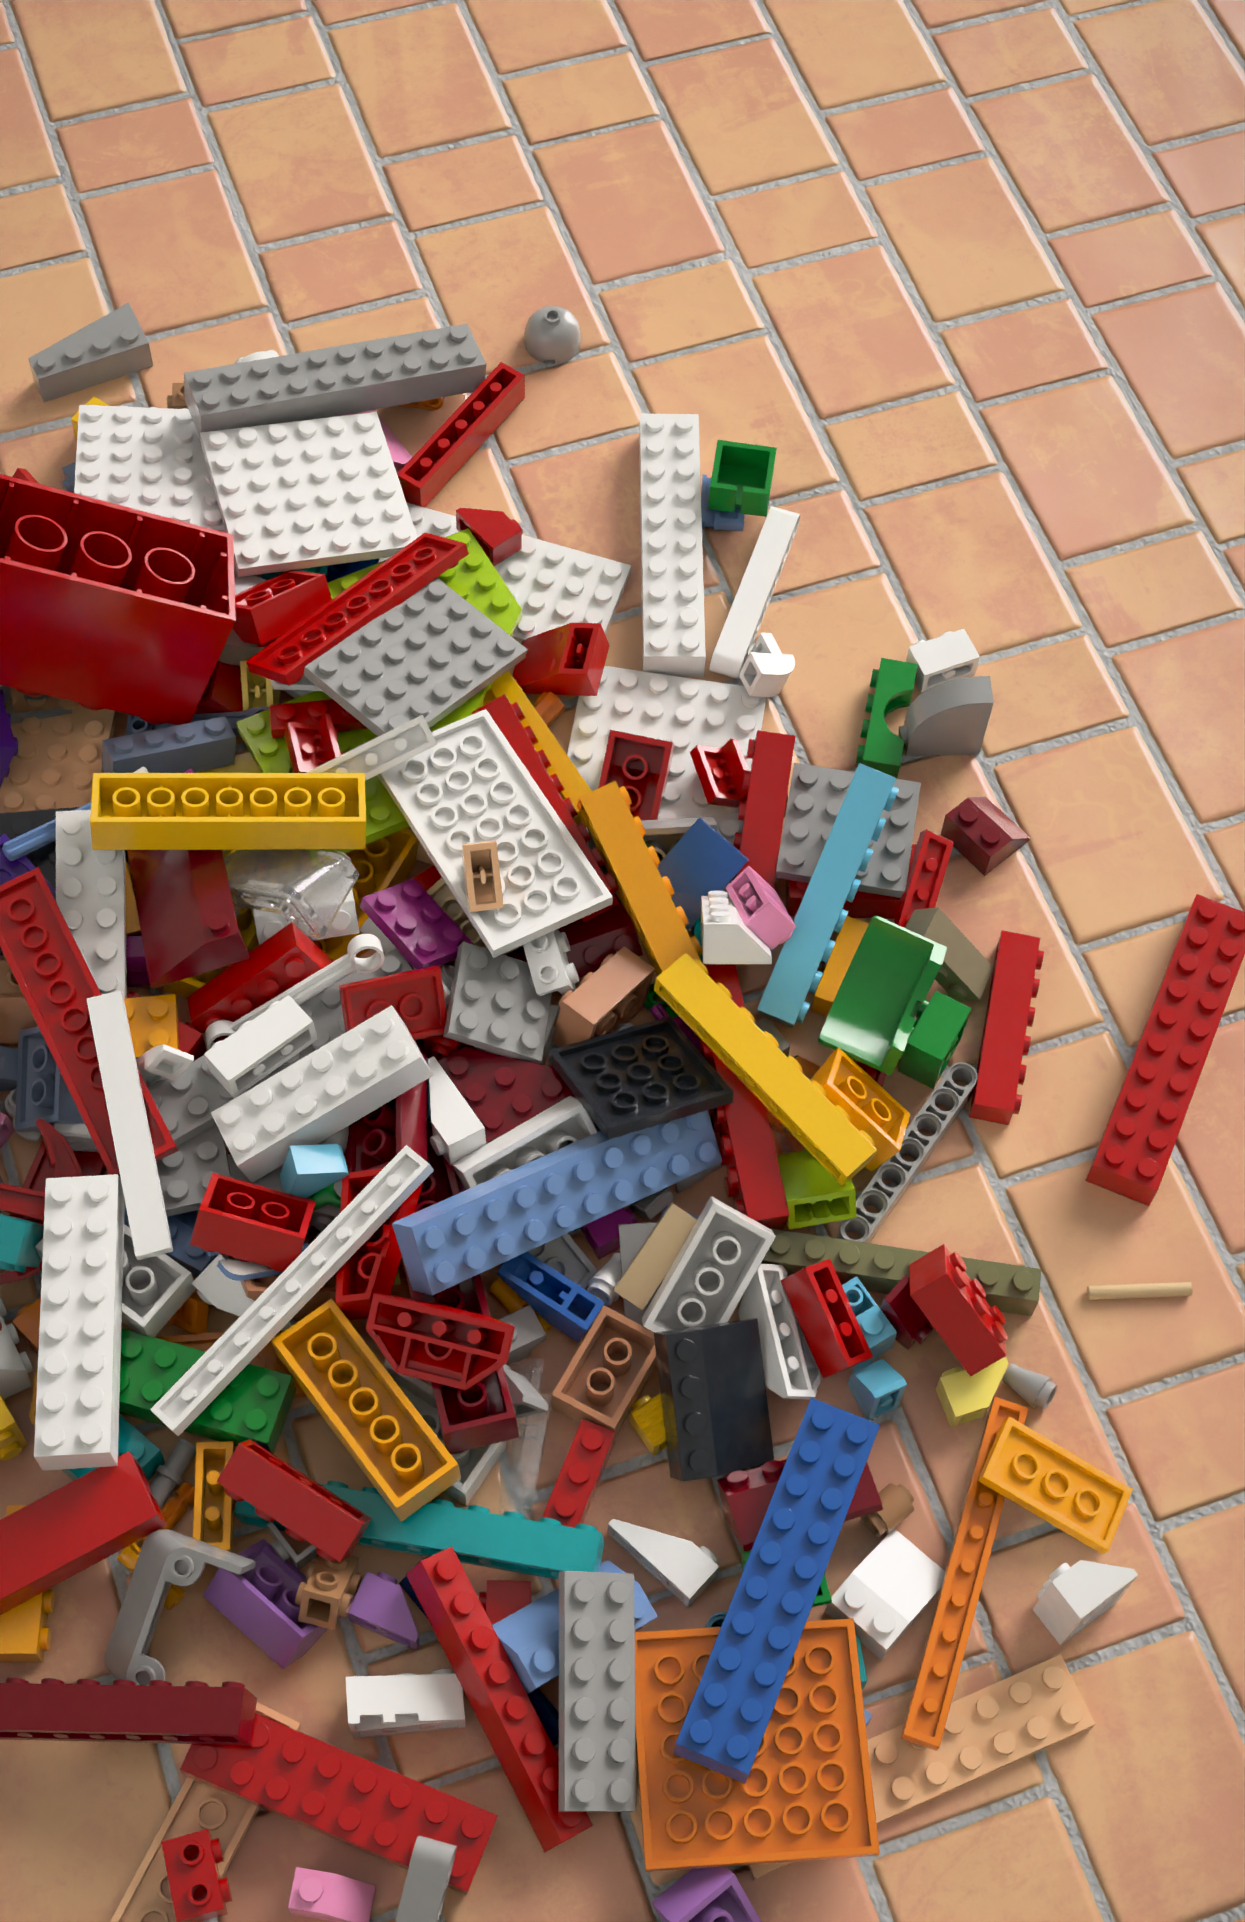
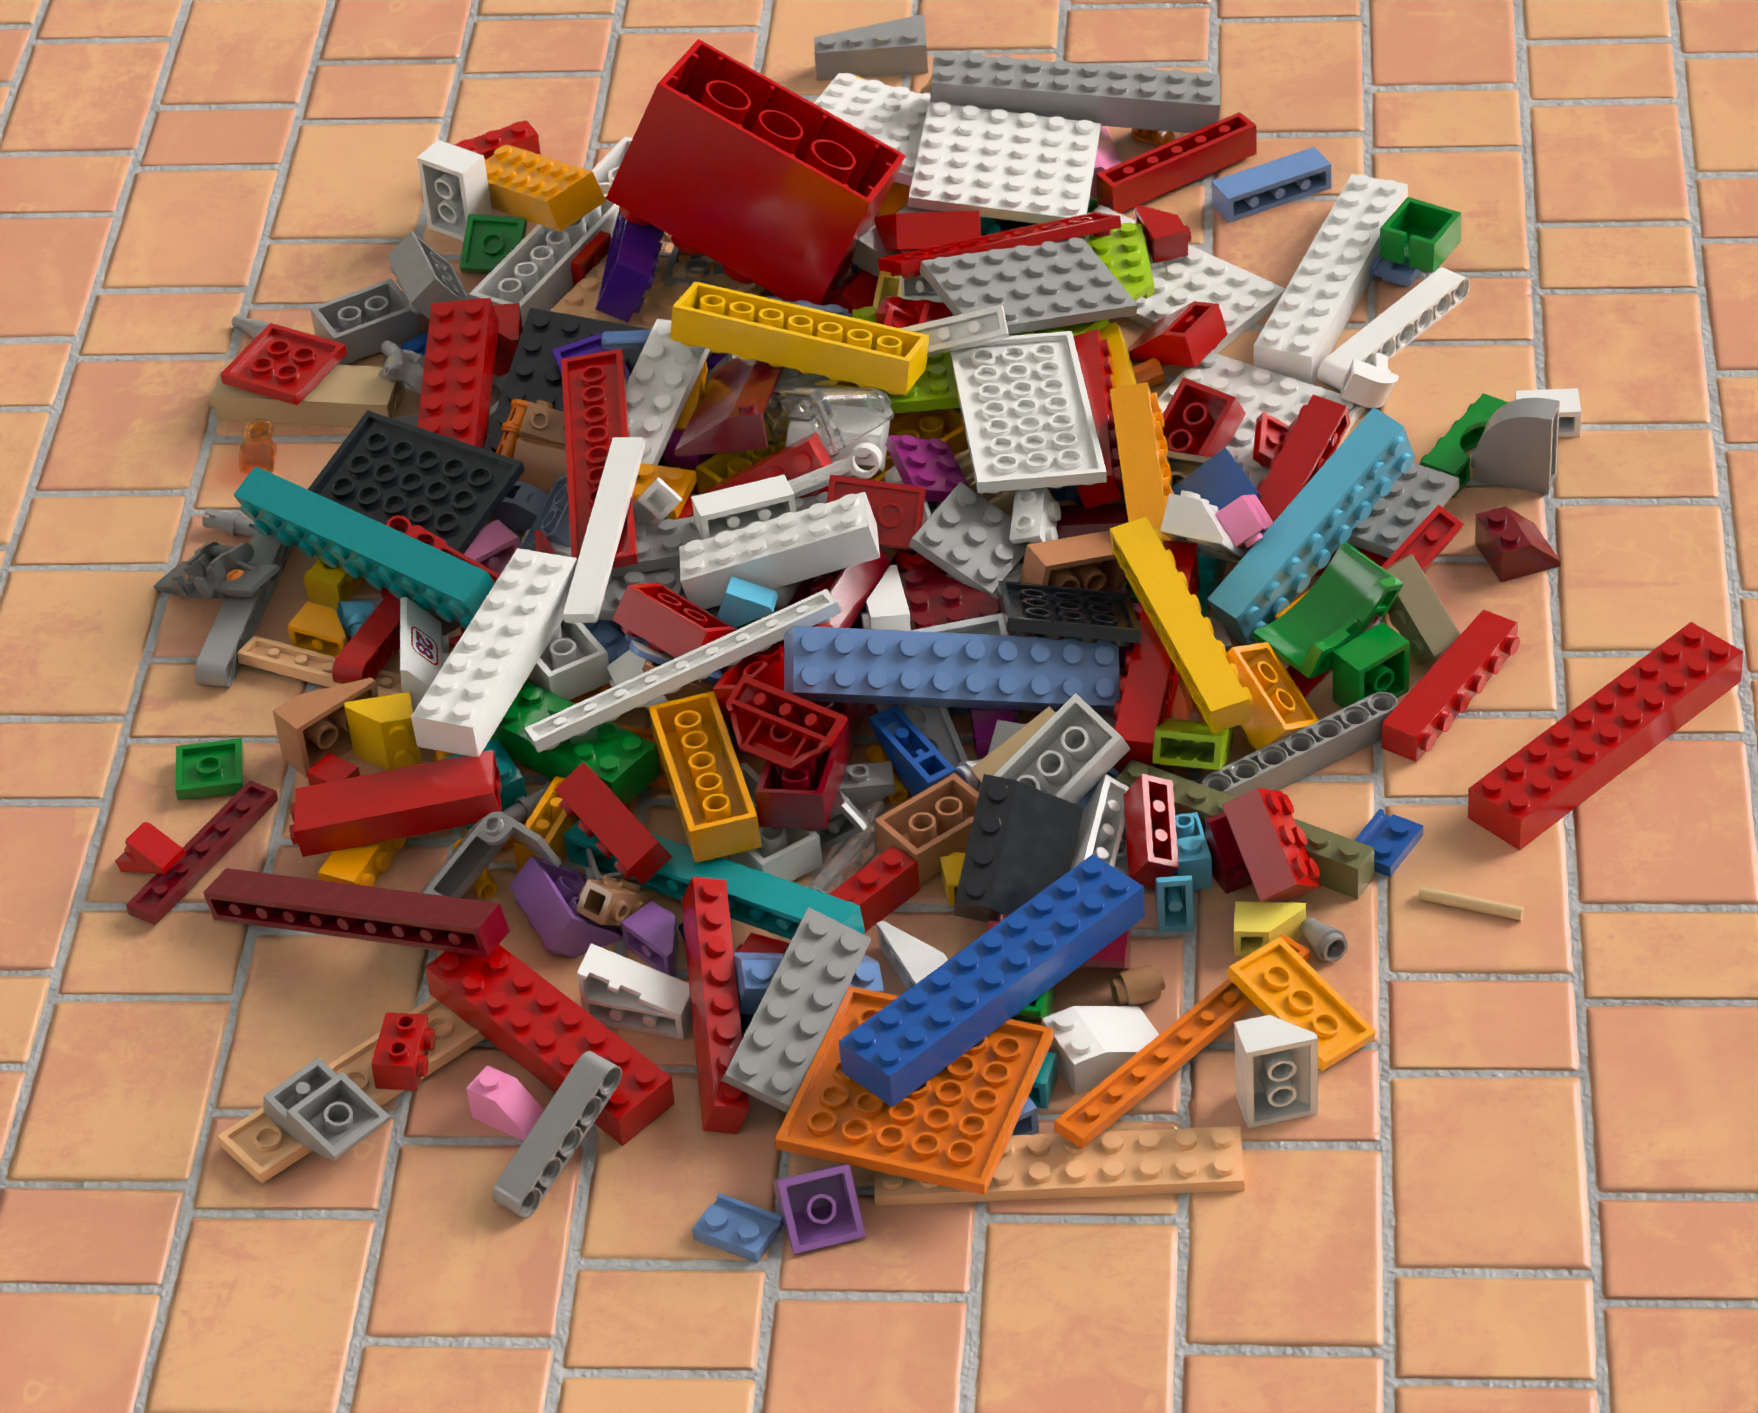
camera: 30 degrees right, 20 degrees down
(482, 876) = (994, 423): light nougat slope -> none
(552, 335) = (1308, 110): light grey cylinder -> none
(559, 437) = (1271, 184): none -> medium blue brick
(1029, 1237) = (1391, 839): none -> blue plate

